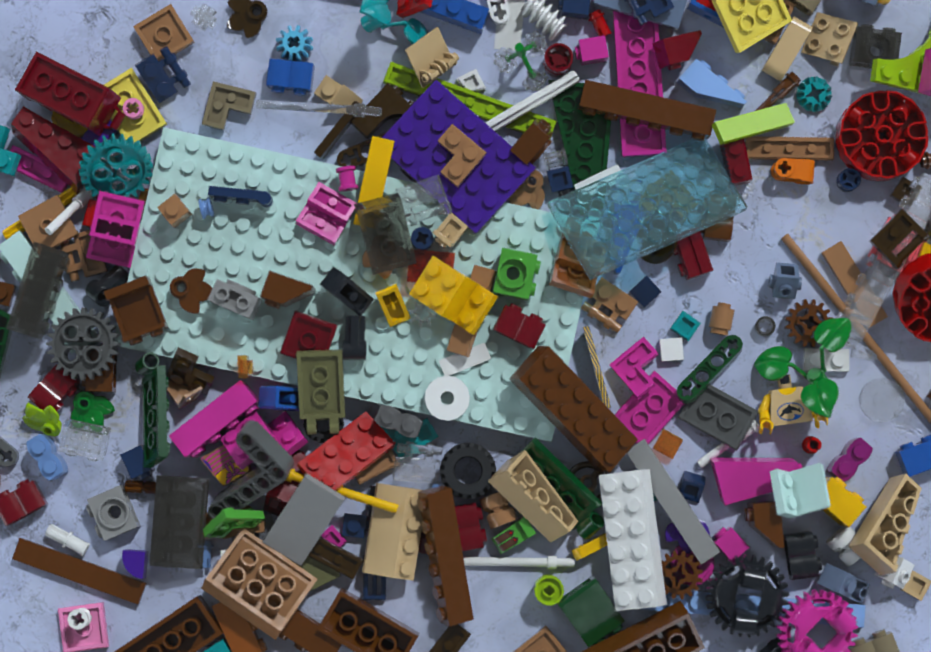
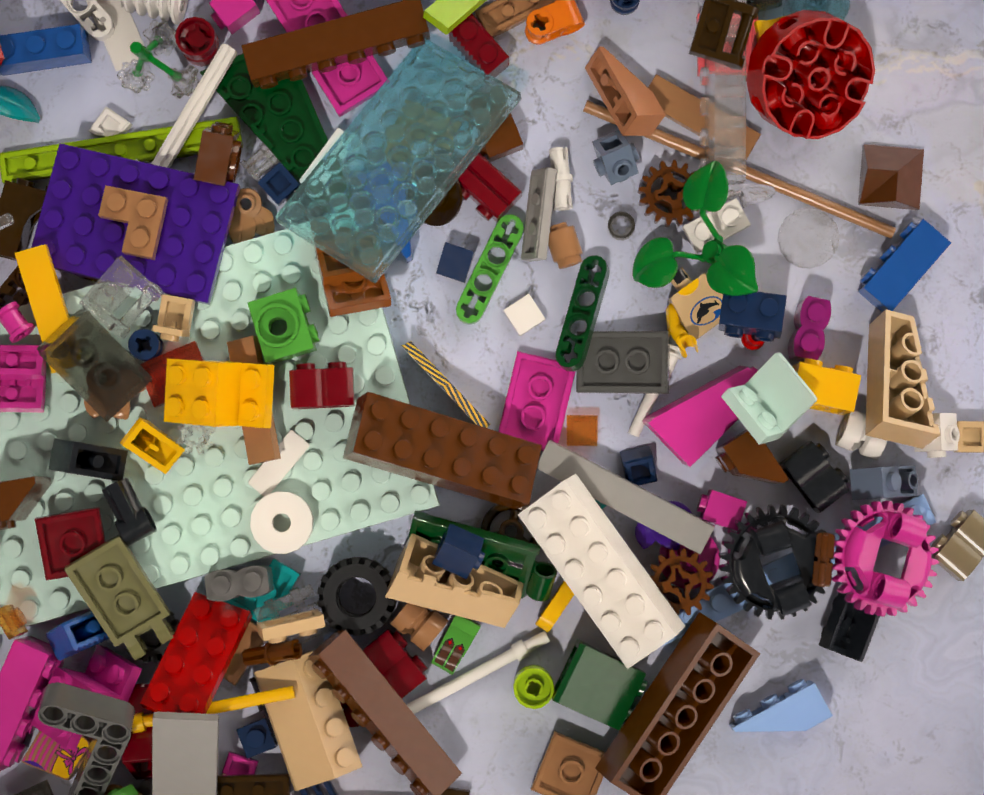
camera: 25 degrees left, 0 degrees up
(396, 477) = (273, 653): none -> reddish brown axle
(425, 469) = (278, 629): none -> tan plate
(430, 57) = (41, 121): tan hinge -> none
(549, 478) = (459, 551): none -> dark blue brick
(614, 300) = (422, 293): medium nougat plate -> none
(630, 365) = (485, 359): dark pink plate -> none
(666, 310) = (485, 267): none -> bright green beam
(685, 326) = (525, 277): teal tile -> none
(716, 290) = (538, 214): none -> light grey tile
(742, 274) = (562, 193): none -> white pin
(775, 615) = (823, 567): none -> reddish brown piece
(814, 249) = (625, 96): none -> nougat slope
(818, 430) = (753, 314): none -> dark blue bracket

